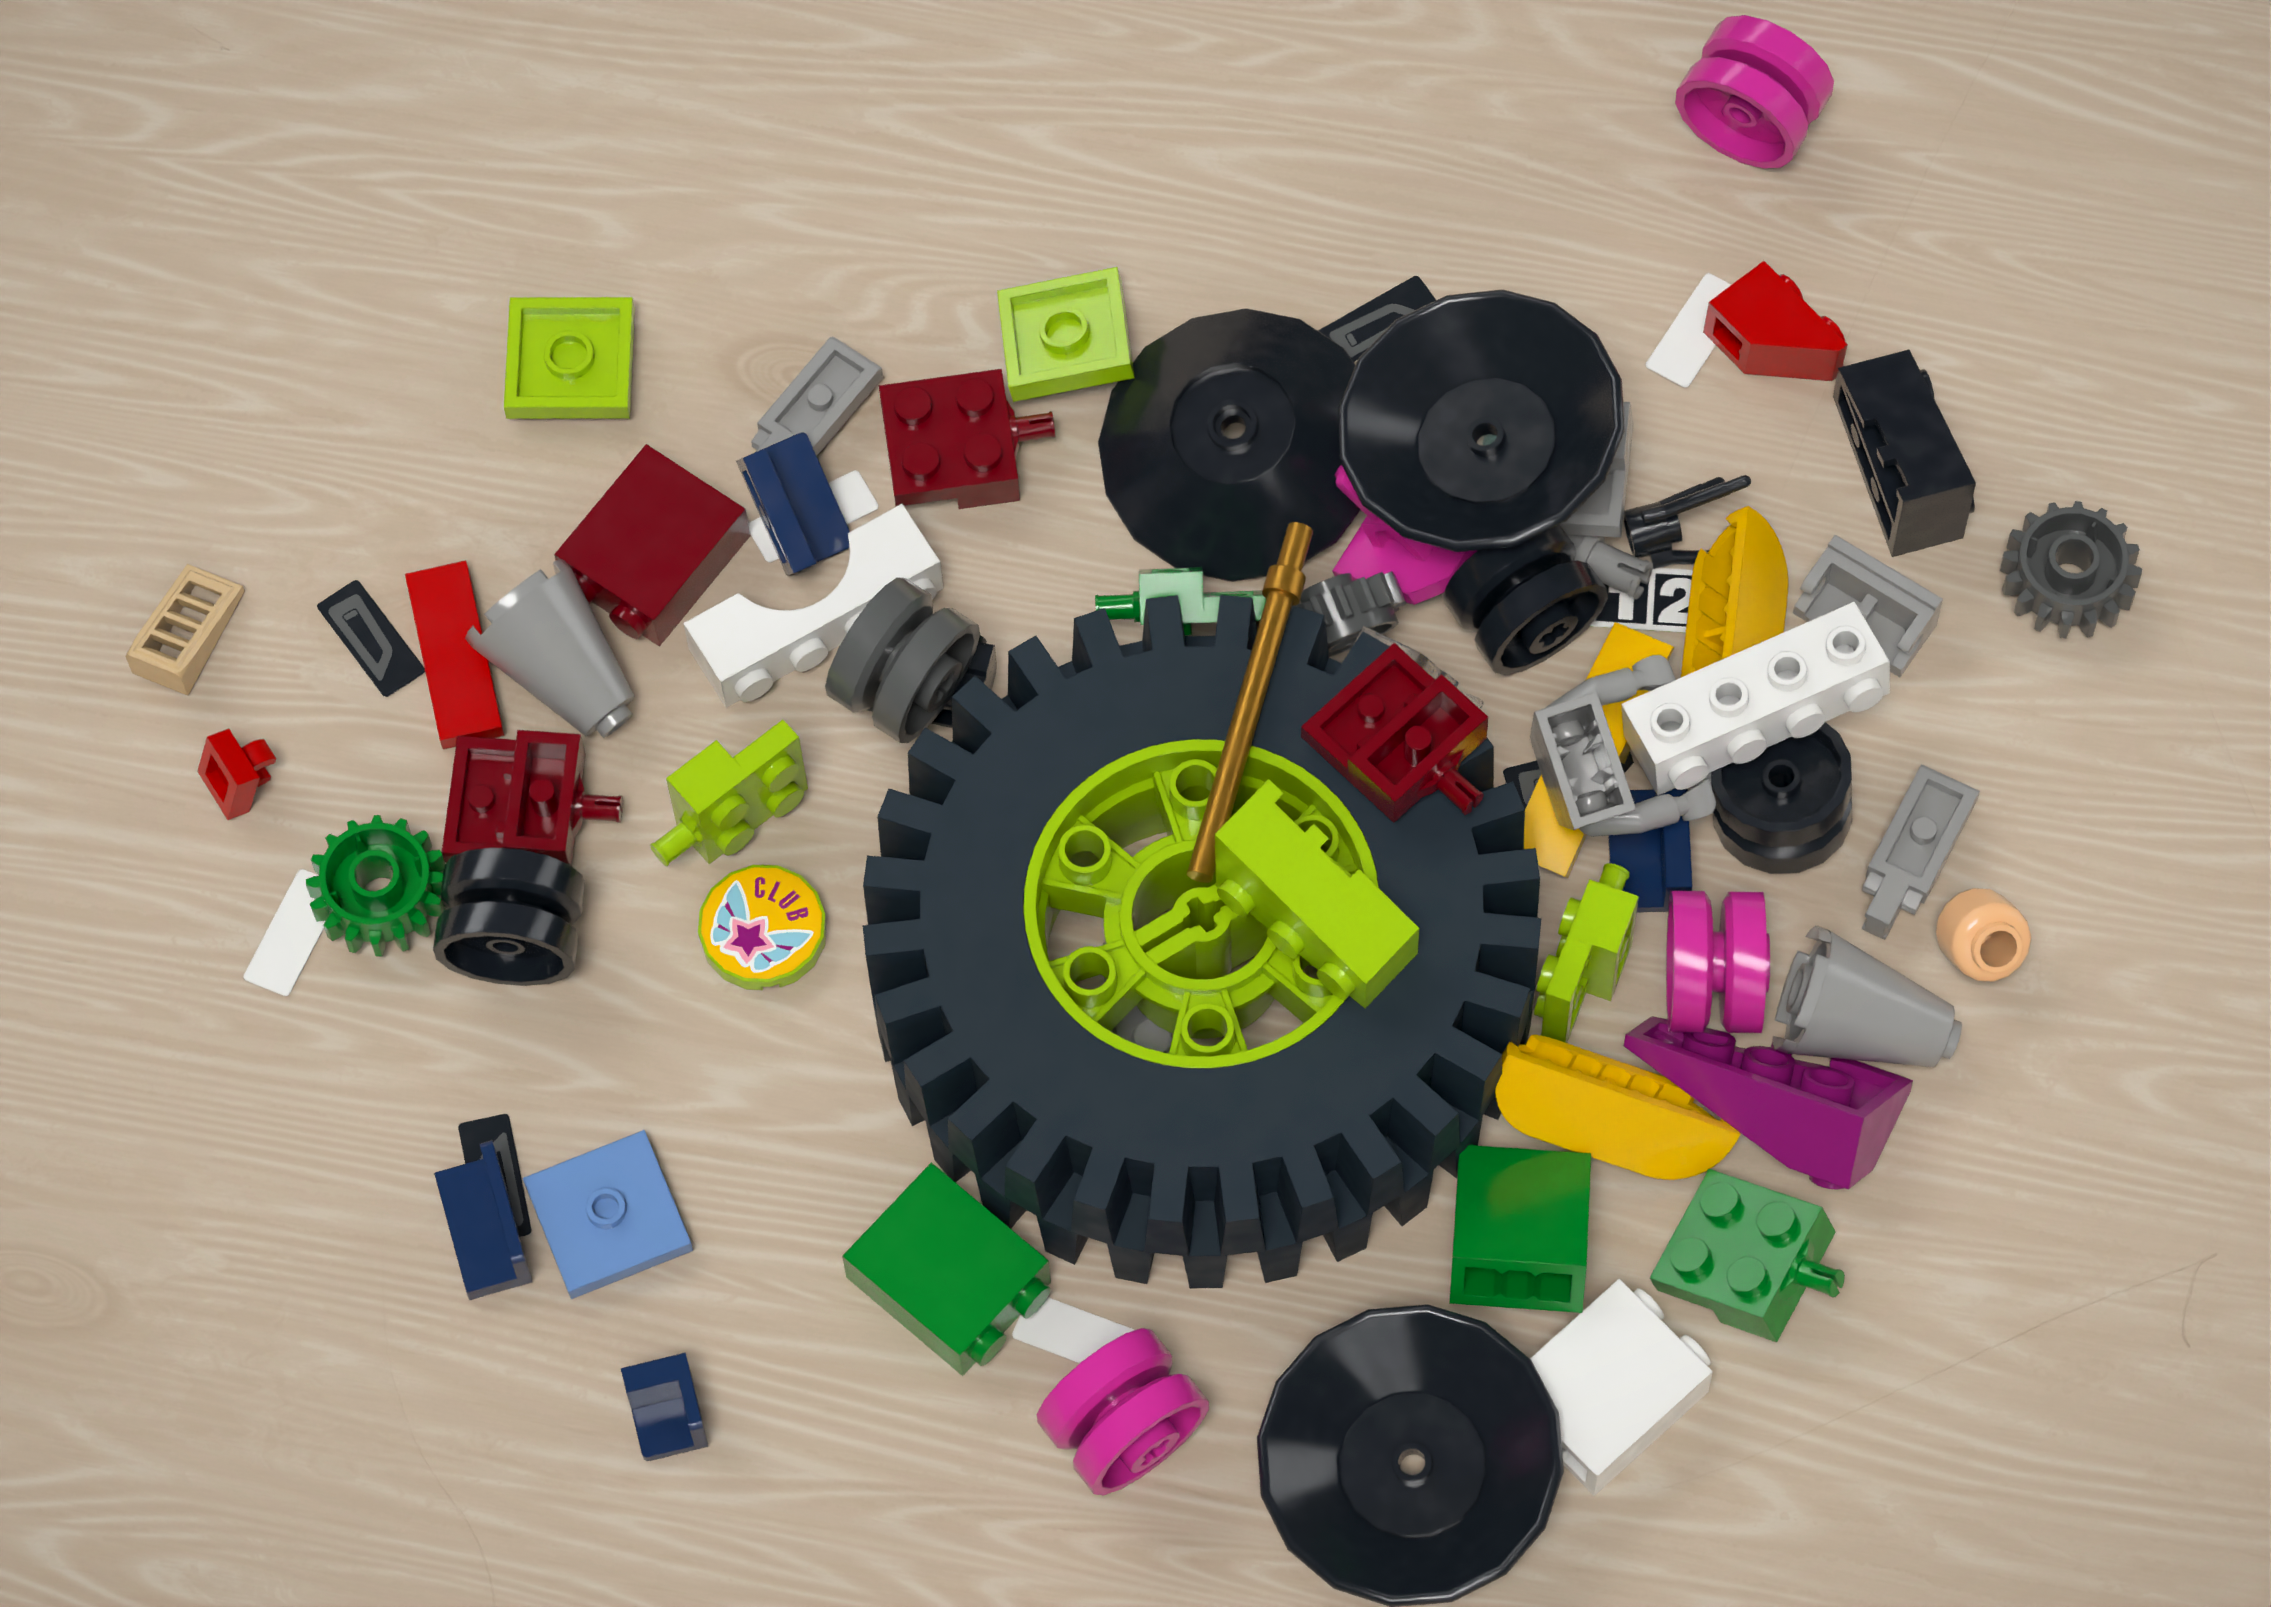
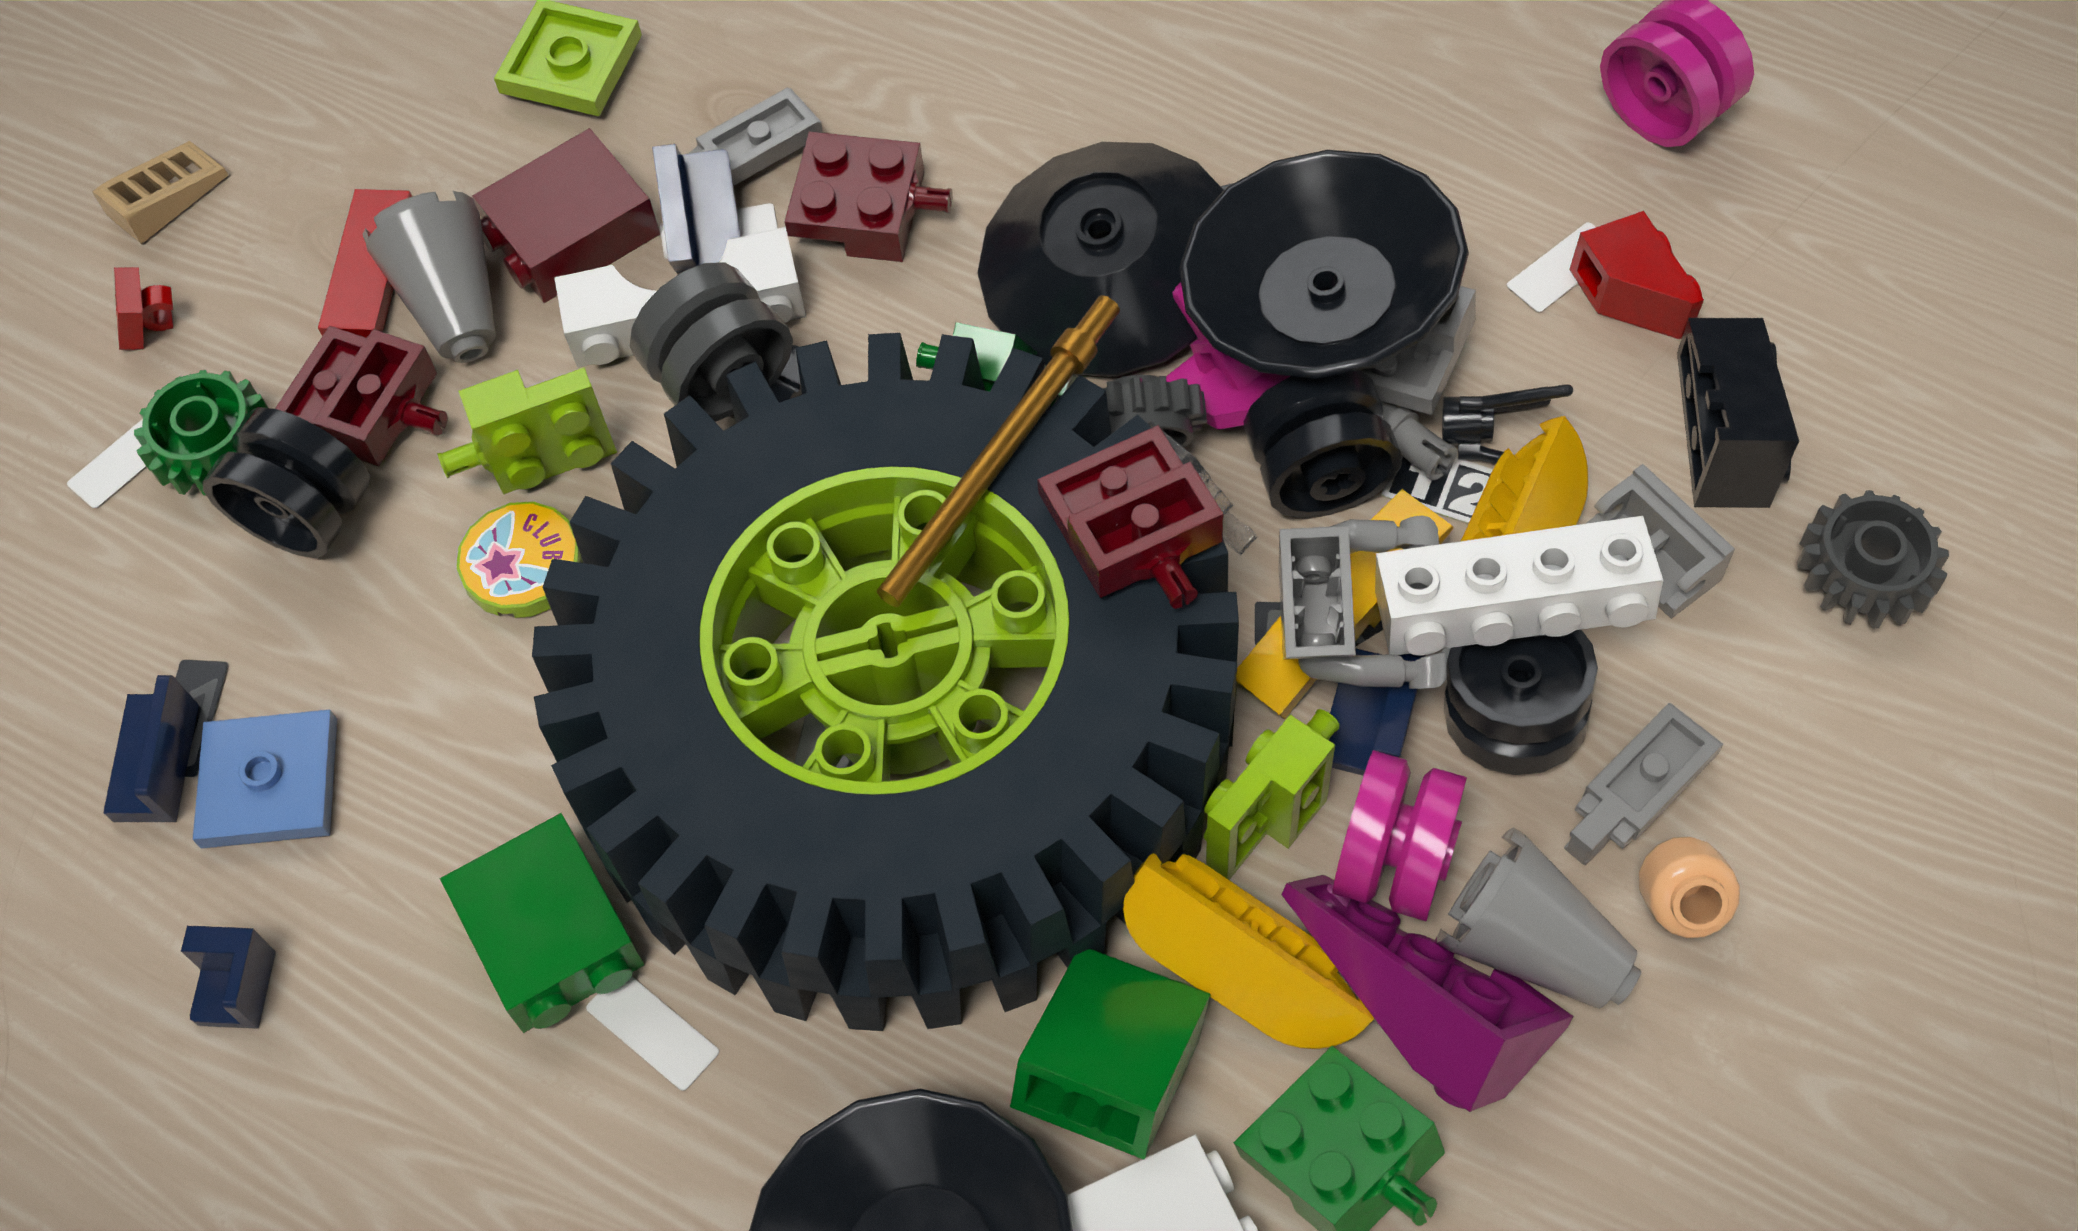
camera: 20 degrees right, 5 degrees down
(371, 638) = (309, 236): black sticker -> none
(1065, 334) = (988, 131): lime plate -> none
(1122, 1411) = (637, 1118): dark pink wheel -> none
(1310, 900) = (981, 644): lime wedge -> none

